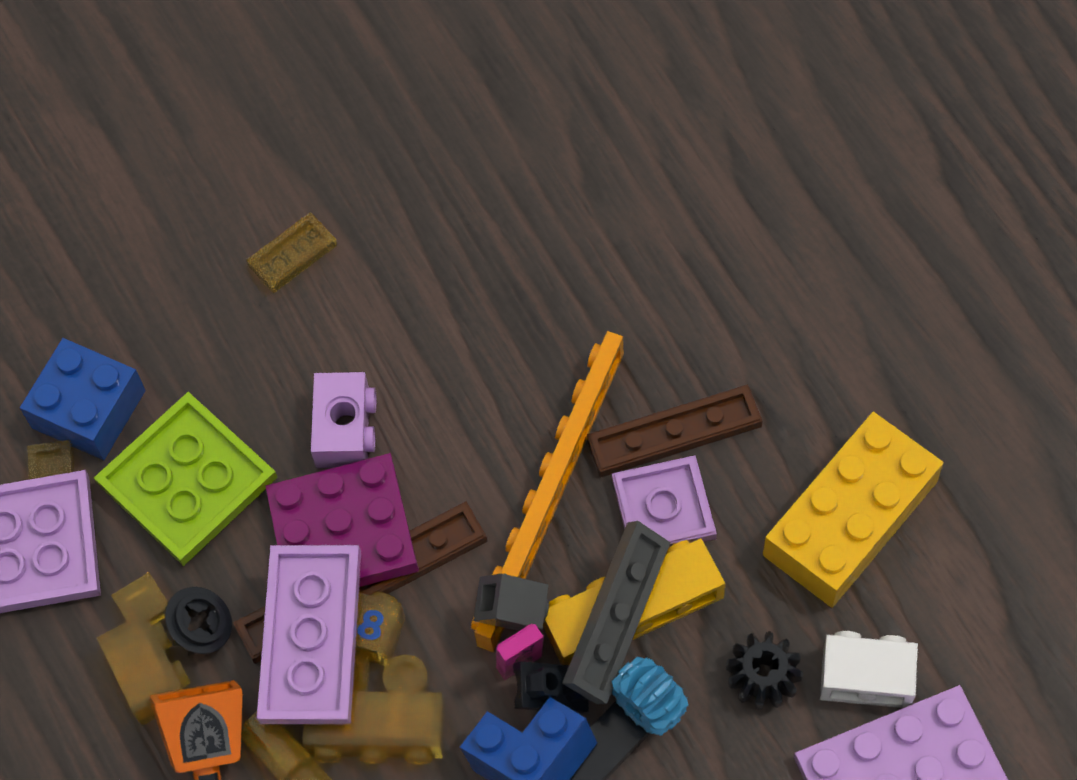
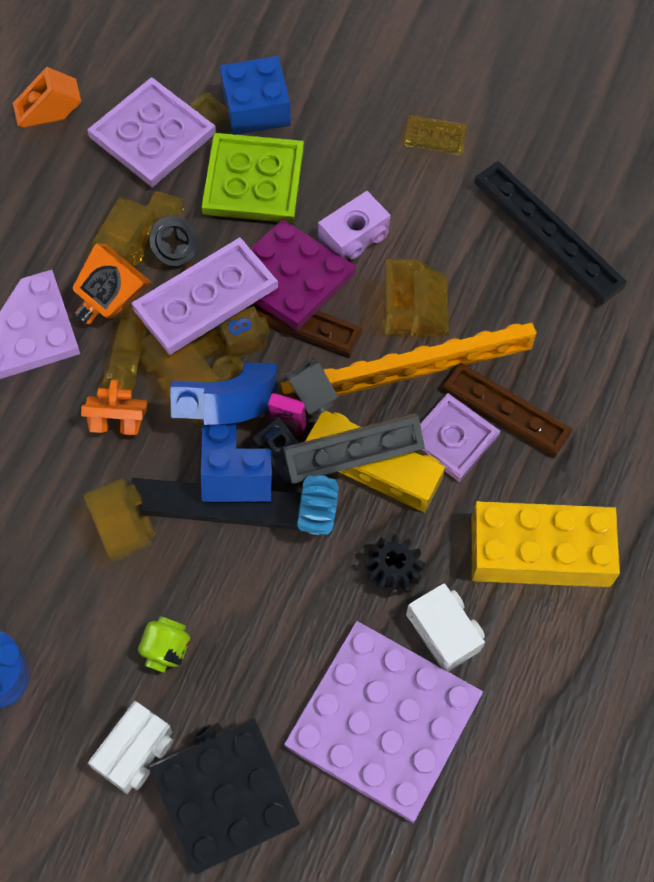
camera: 45 degrees right, 0 degrees up
(459, 702) = (227, 400): none -> blue arch
(479, 425) = (414, 299): none -> clear yellow slope
(507, 232) = (550, 232): none -> black plate

